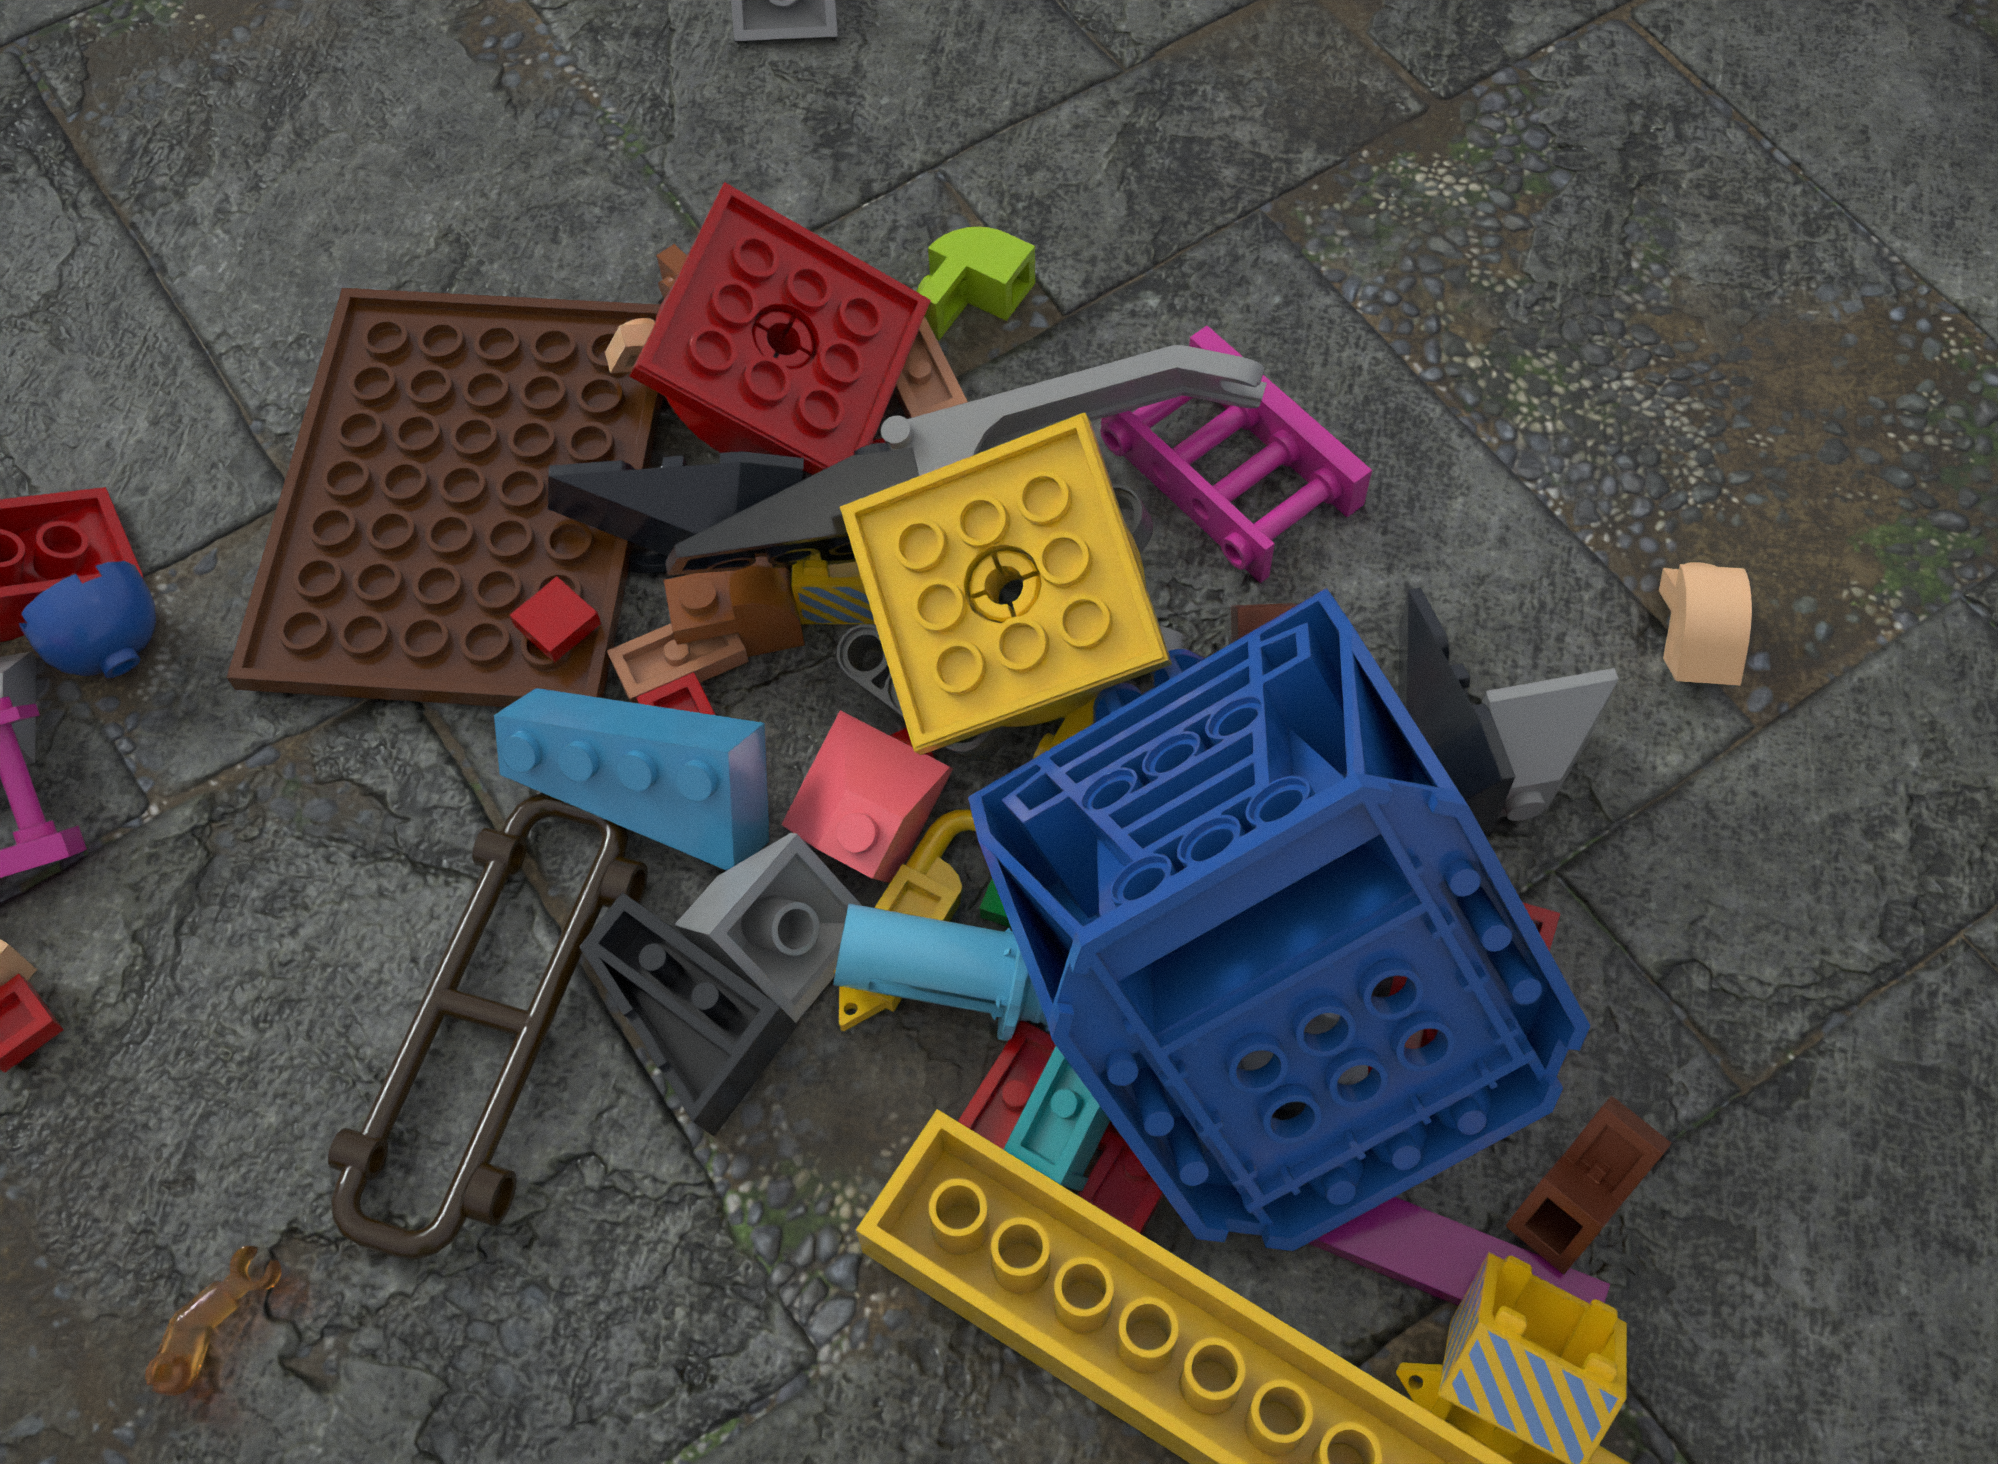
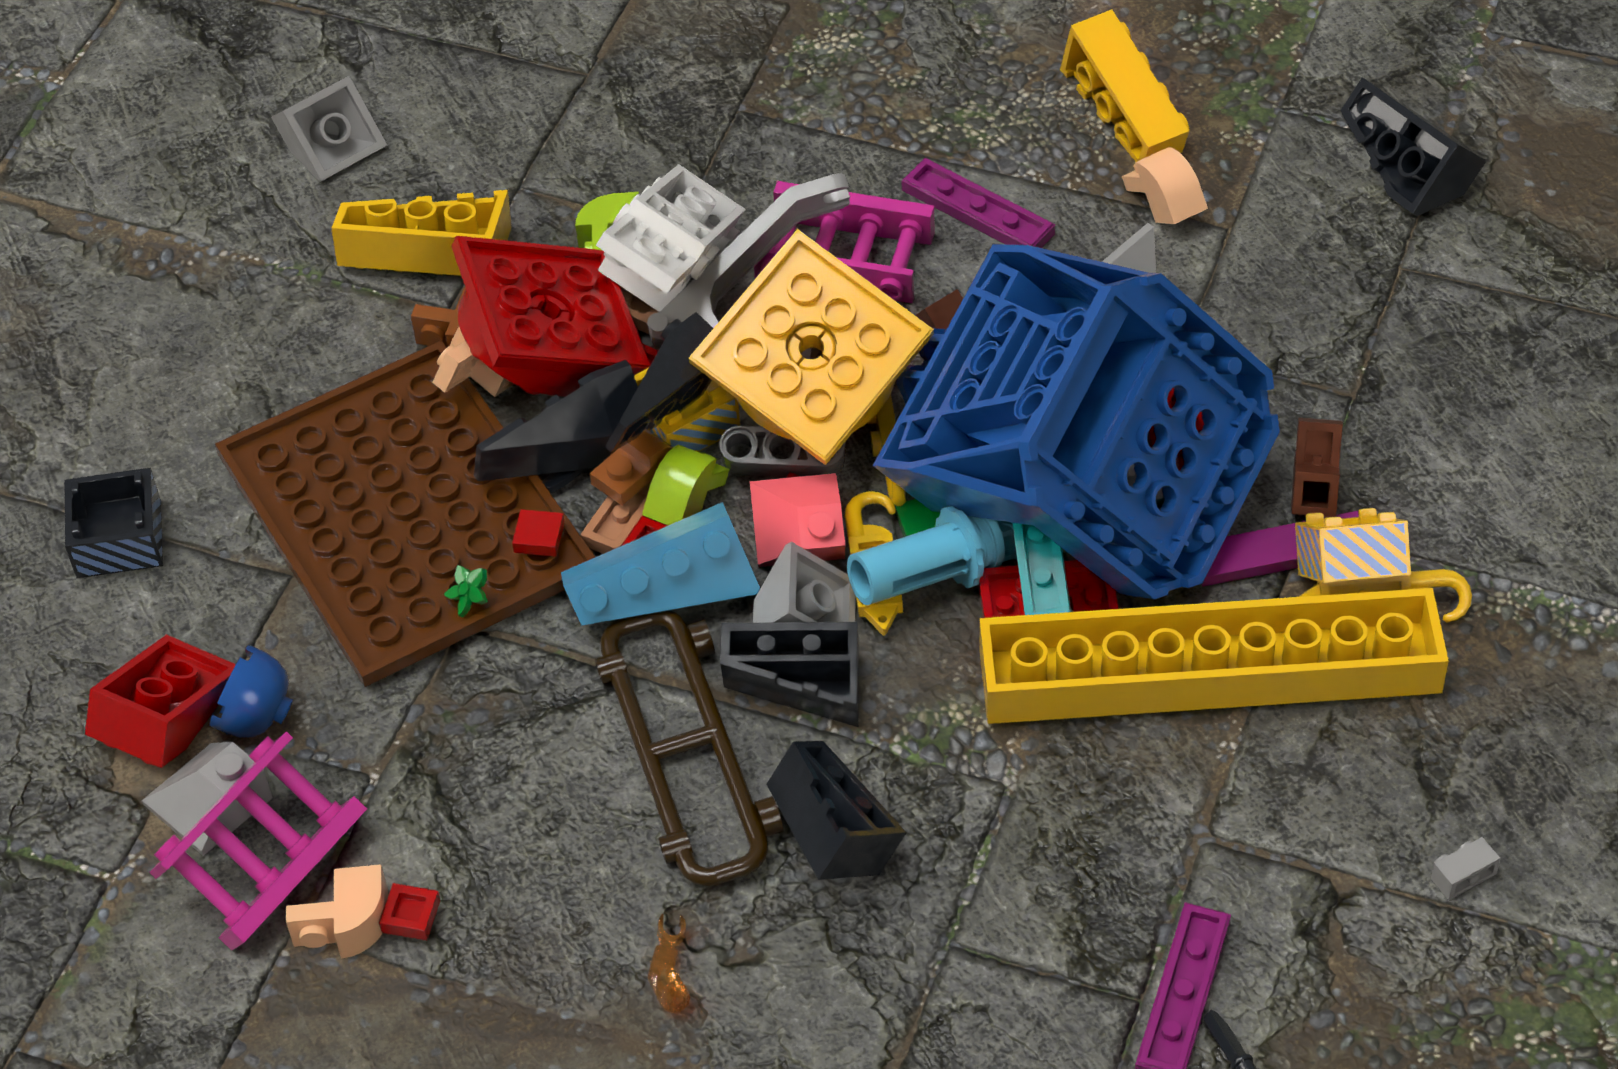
camera: 35 degrees left, 10 degrees down
(164, 319) = (113, 523): none -> black container
(414, 641) = (468, 588): none -> green plant
(540, 1262) = (833, 813): none -> black wedge
(765, 658) = (682, 484): none -> lime brick
(768, 157) = (416, 233): none -> yellow wedge
(980, 321) = (667, 239): none -> white wedge
(1444, 504) = (976, 206): none -> magenta tile
(1756, 449) = (1122, 86): none -> yellow wedge

